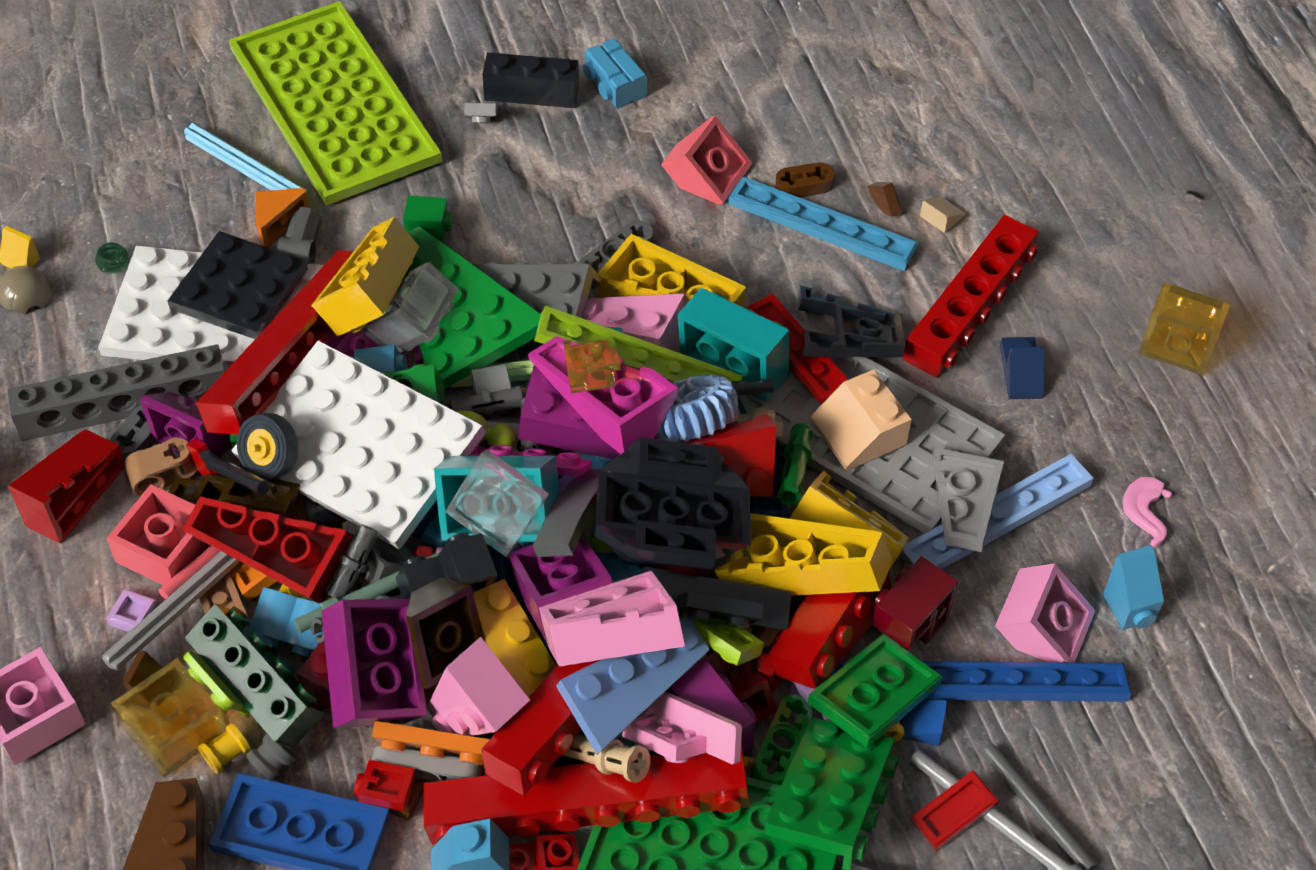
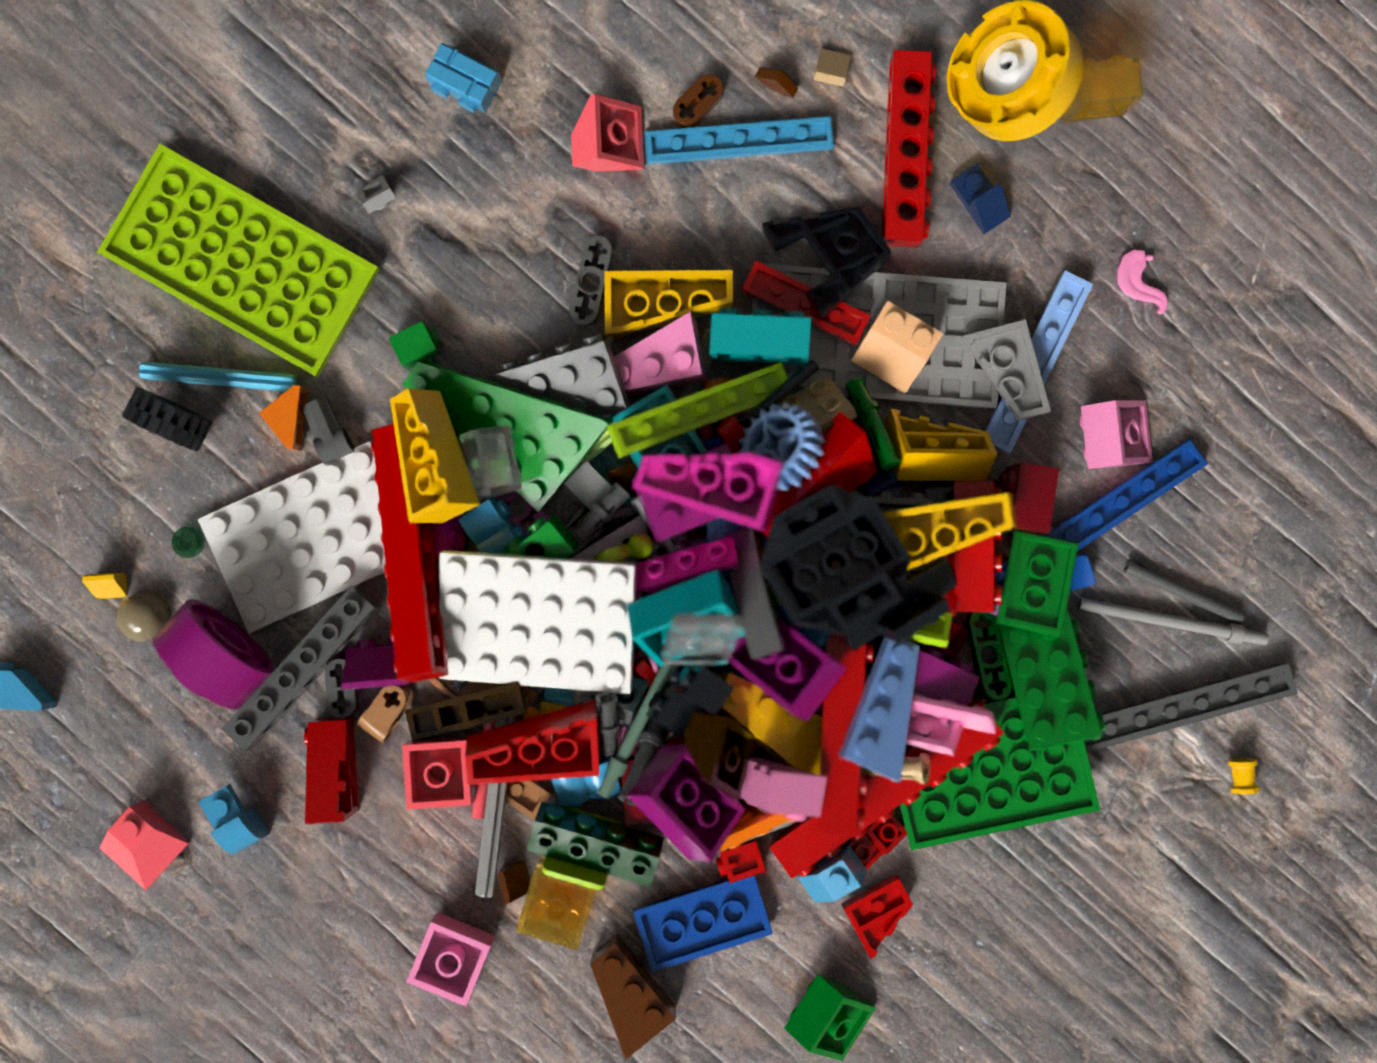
camera: 30 degrees left, 35 degrees up
(54, 321) = (212, 655): none -> magenta piece
(130, 610) = (459, 833): lavender tile -> none
(179, 155) = (167, 419): none -> black tyre
(211, 464) = (437, 697): black piece -> none
(224, 748) = (608, 899): yellow bush -> none
(237, 285) = (316, 512): black plate -> none
(267, 446) = (476, 675): black wheel -> none
(270, 758) = (647, 895): dark grey wheel -> none
(531, 80) = (396, 134): black brick -> none
(591, 365) = (697, 497): clear yellow brick -> none
(612, 621) = (855, 690): bright pink wedge -> none
(954, 810) = (1132, 634): red tile -> none
(1106, 268) = (1015, 71): none -> yellow piece
(1135, 588) = (1175, 376): dark azure slope -> none

